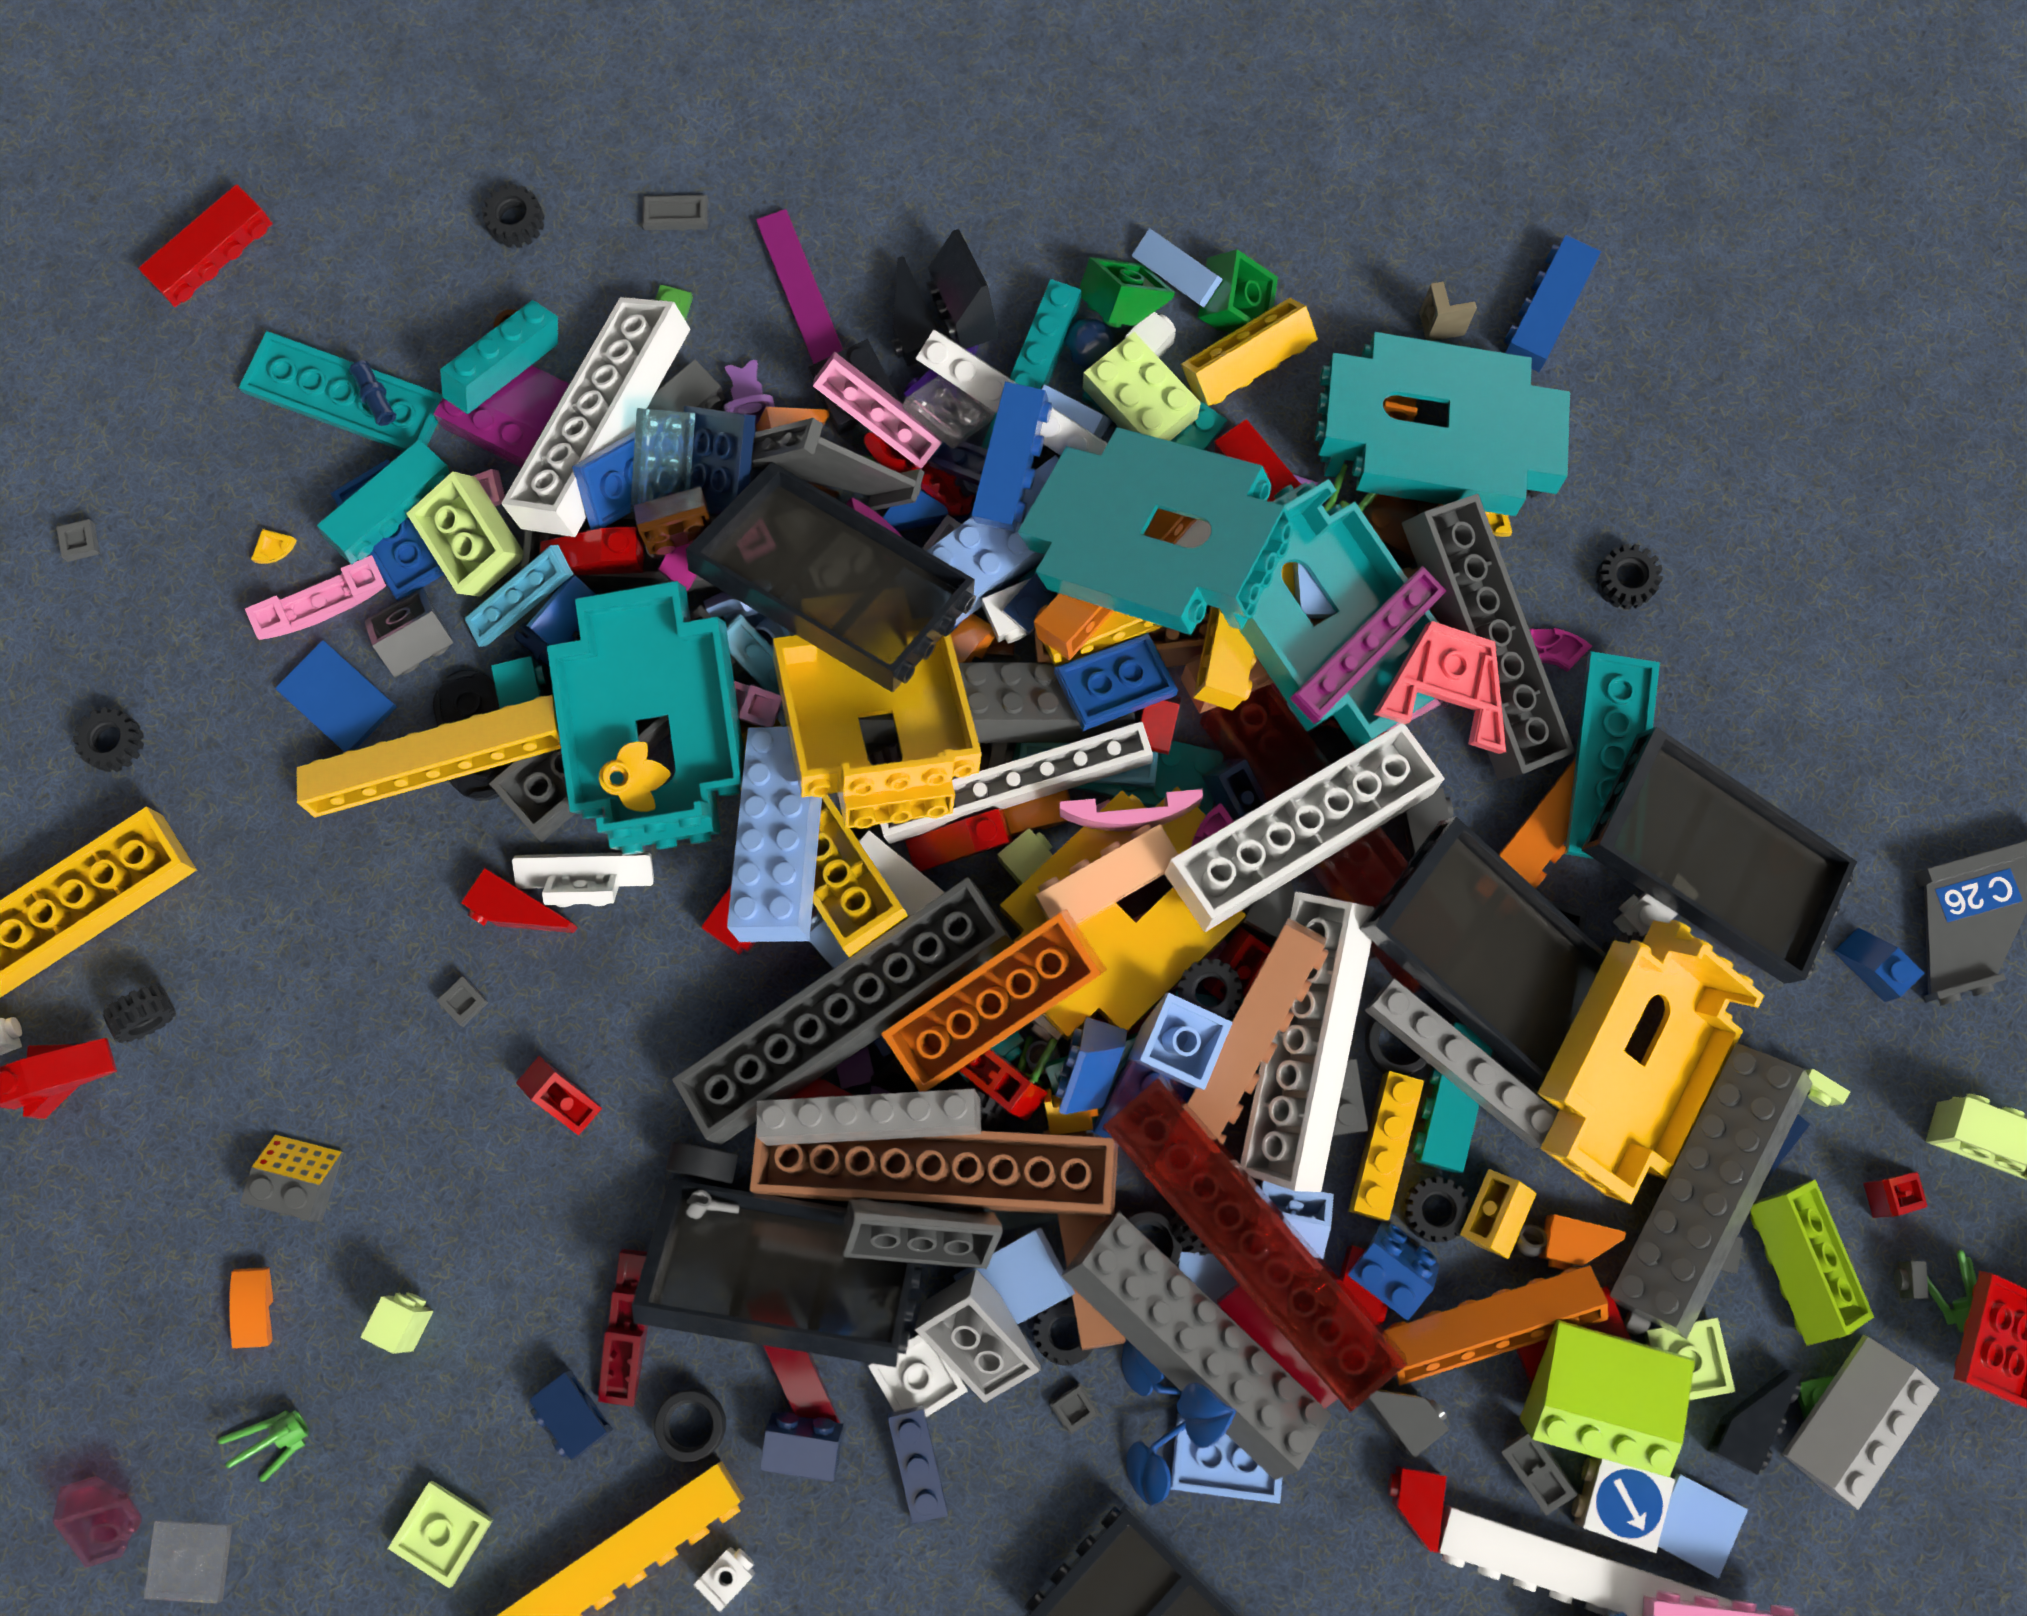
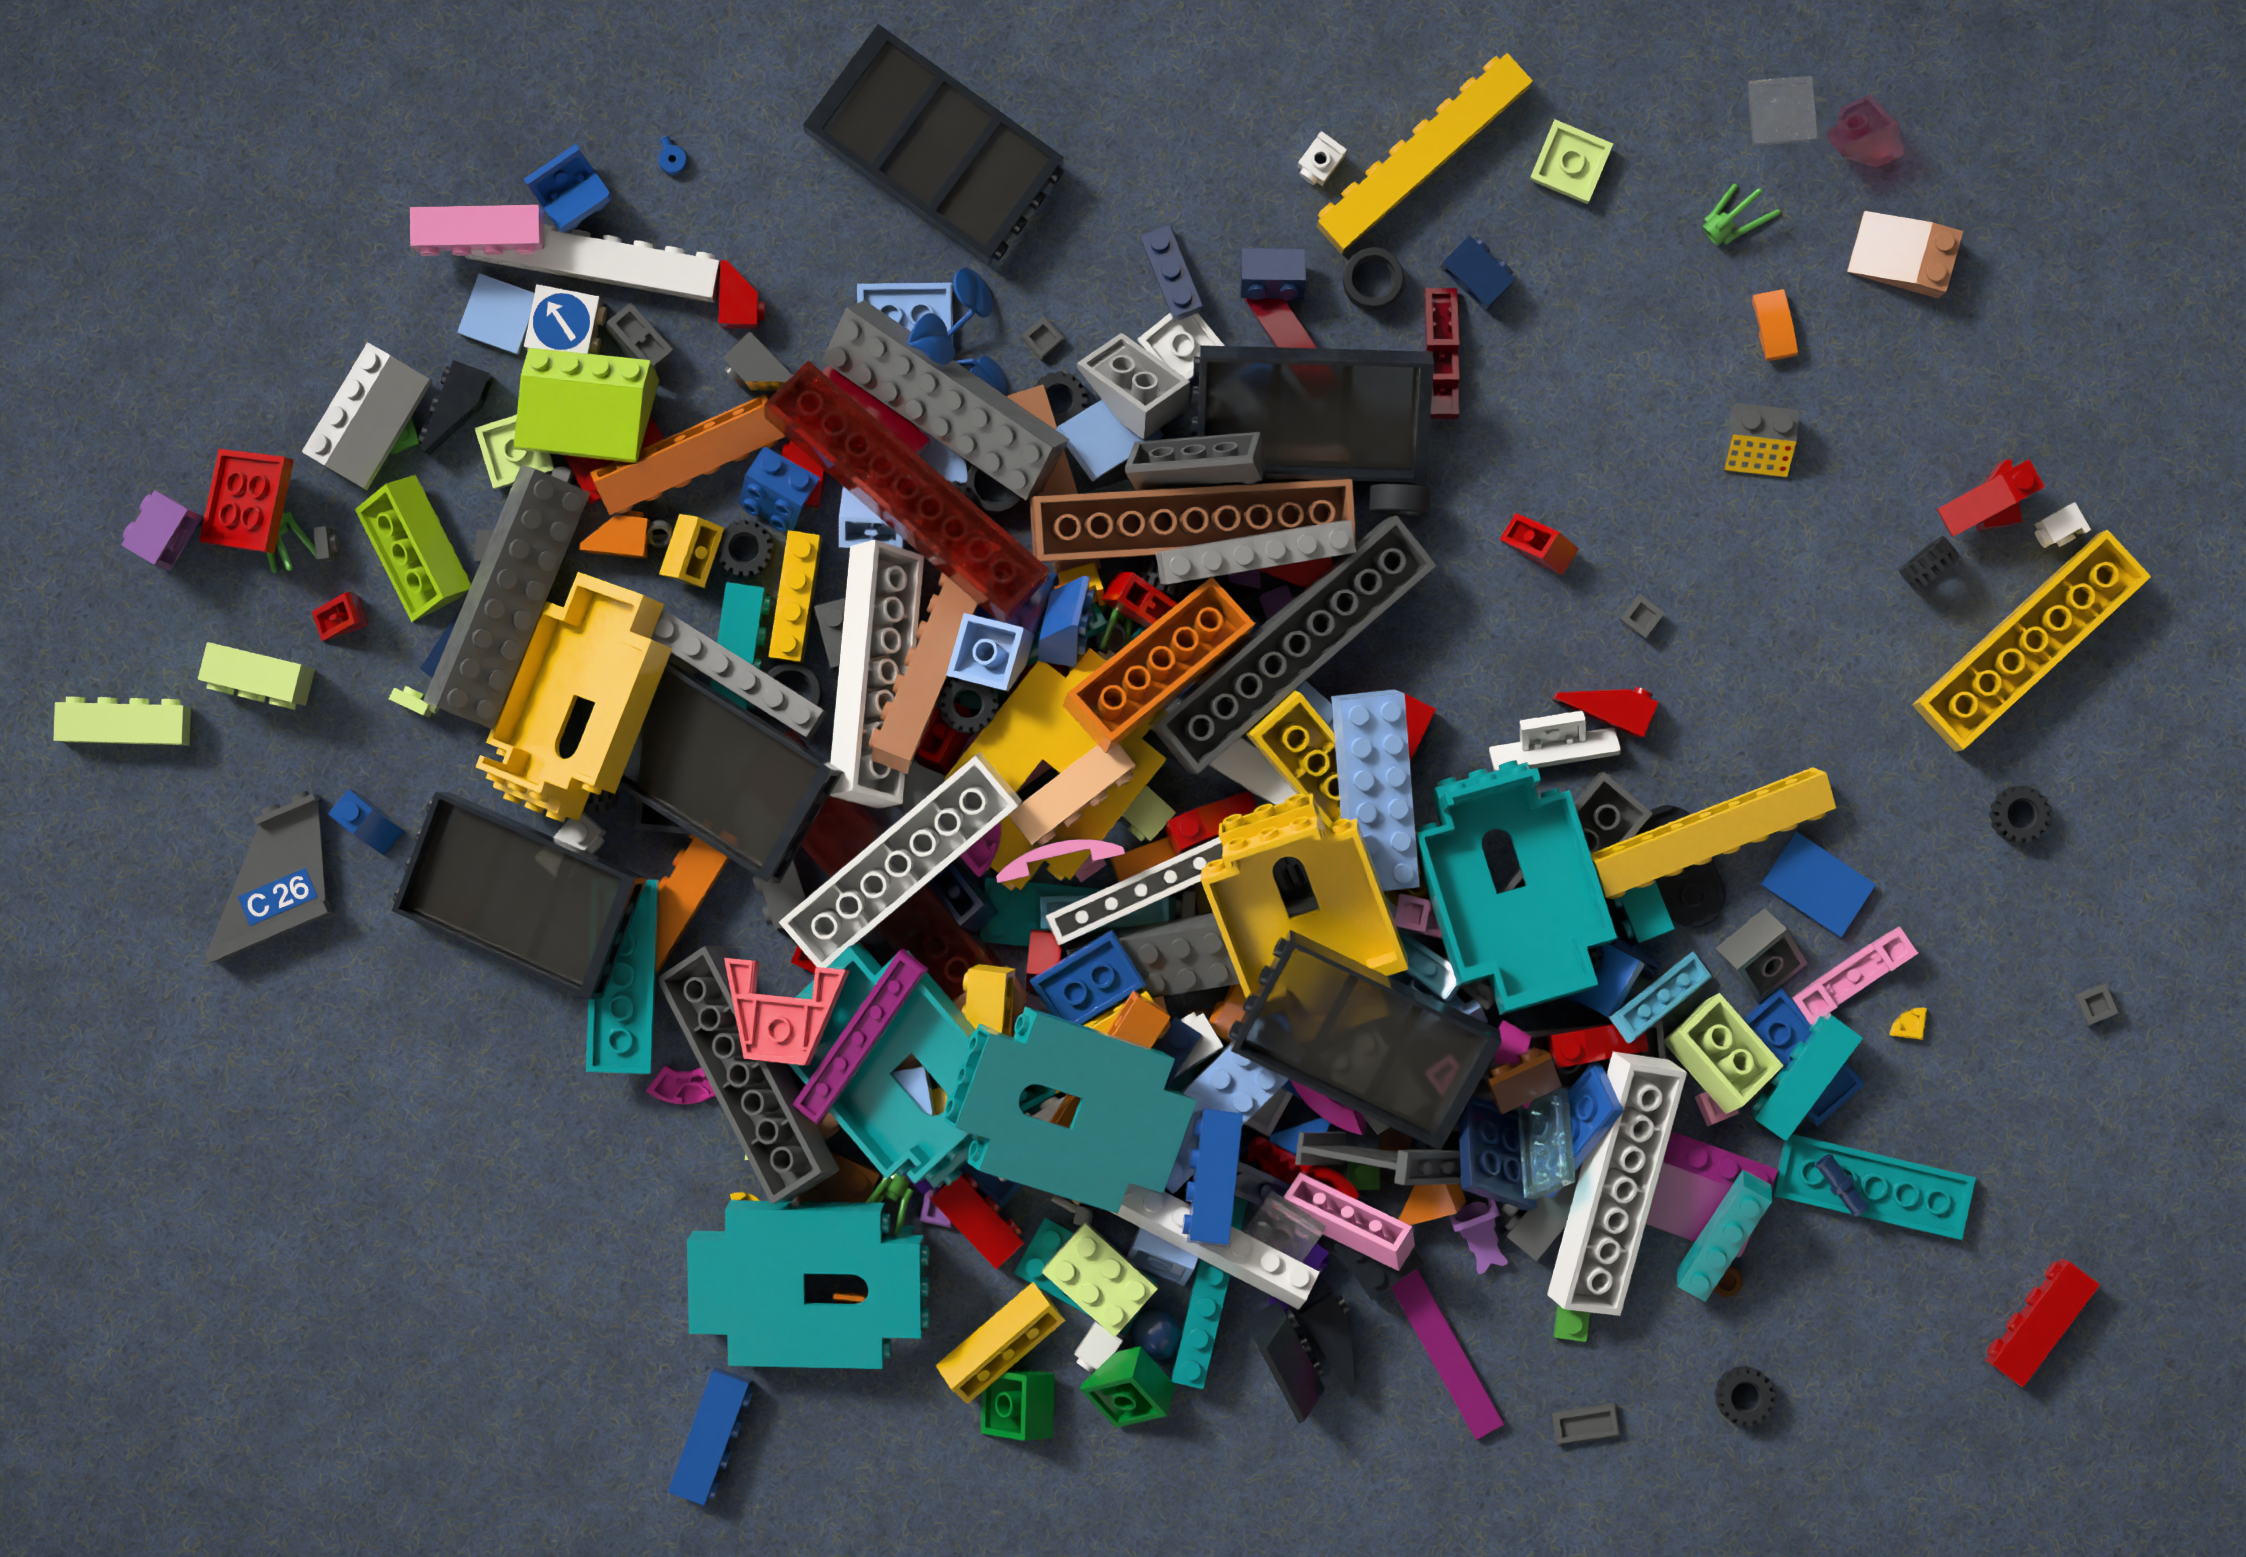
camera: 170 degrees right, 10 degrees up
(85, 1370) = (1905, 253): none -> slope
(397, 1322) = (1640, 327): yellowish green brick -> none
(639, 777) = (1511, 828): yellow plate -> none
(701, 1201) = (1392, 465): light grey hand -> none
(1177, 267) = (1081, 1422): light blue tile -> none
(1440, 318) = (822, 1401): dark tan panel -> none
(1642, 563) = (596, 1167): black tyre -> none

